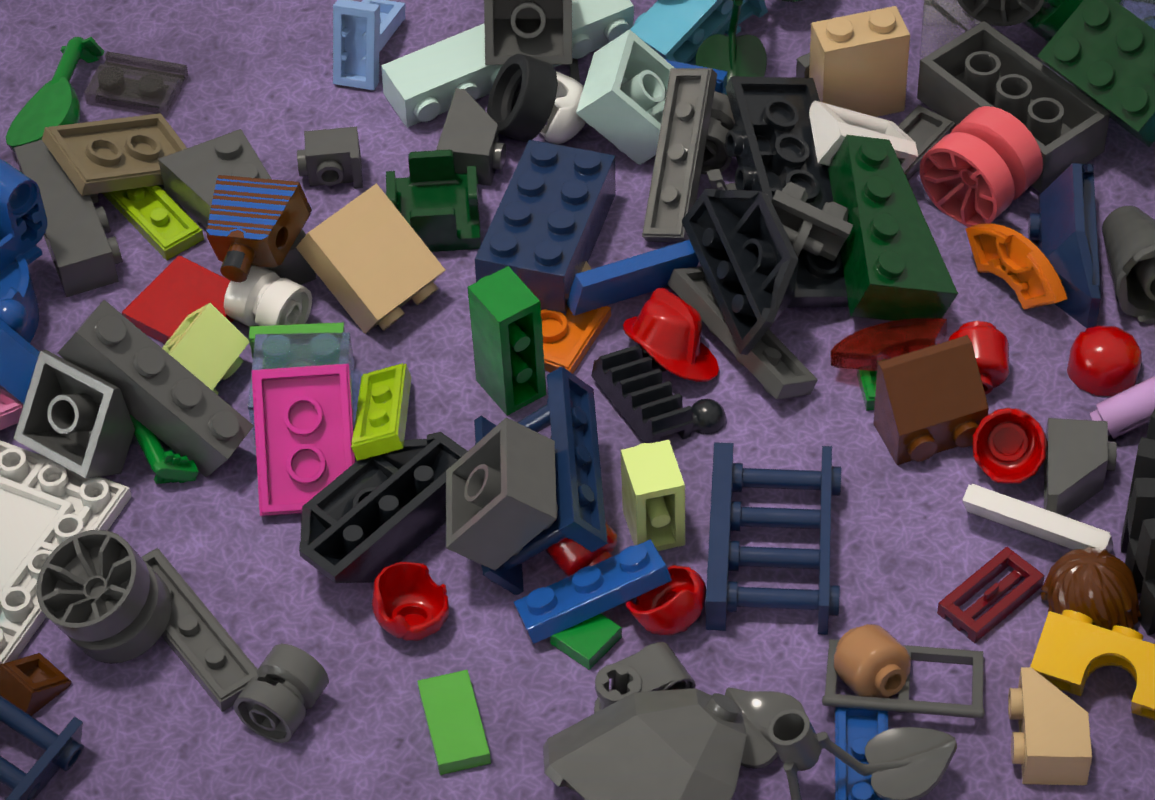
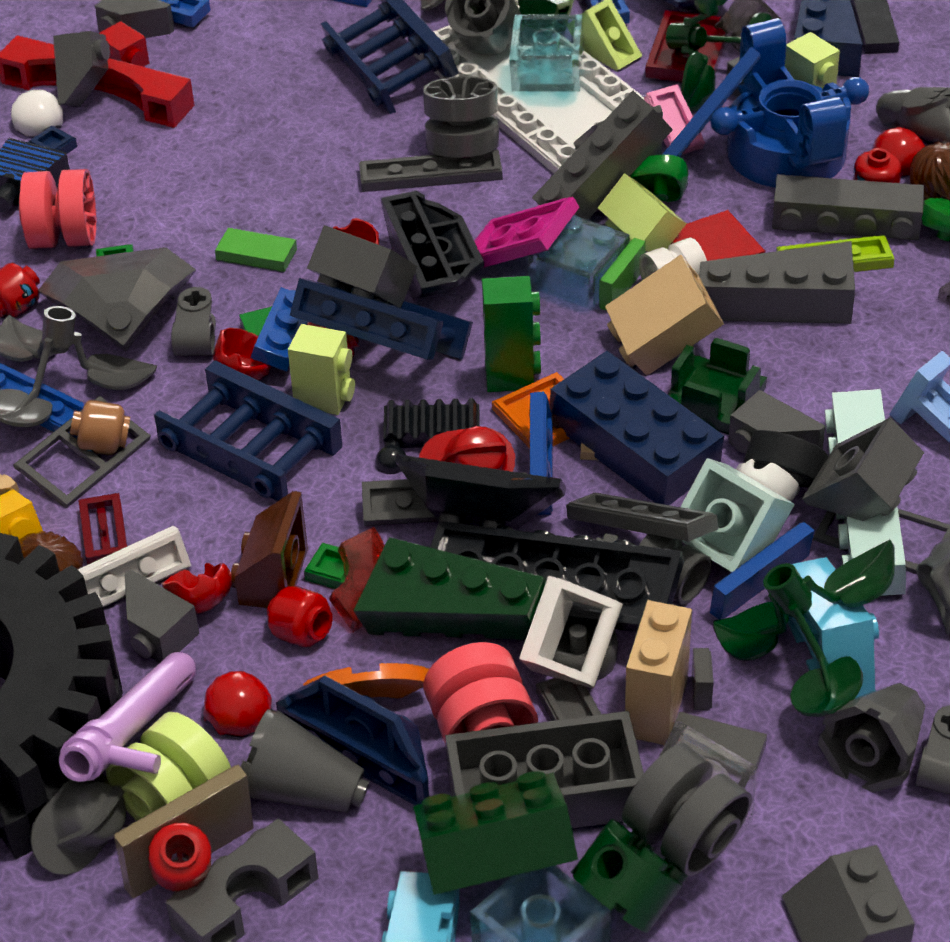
camera: 120 degrees right, 5 degrees down
(113, 152) = (886, 240): dark tan tile -> none
(254, 222) = (723, 241): reddish brown torso -> none
(281, 693) = (334, 176): dark grey wheel -> none
(331, 157) = (807, 352): dark grey brick -> none
(381, 412) = (493, 263): lime tile -> none
(808, 227) = (489, 531): dark grey hips -> none

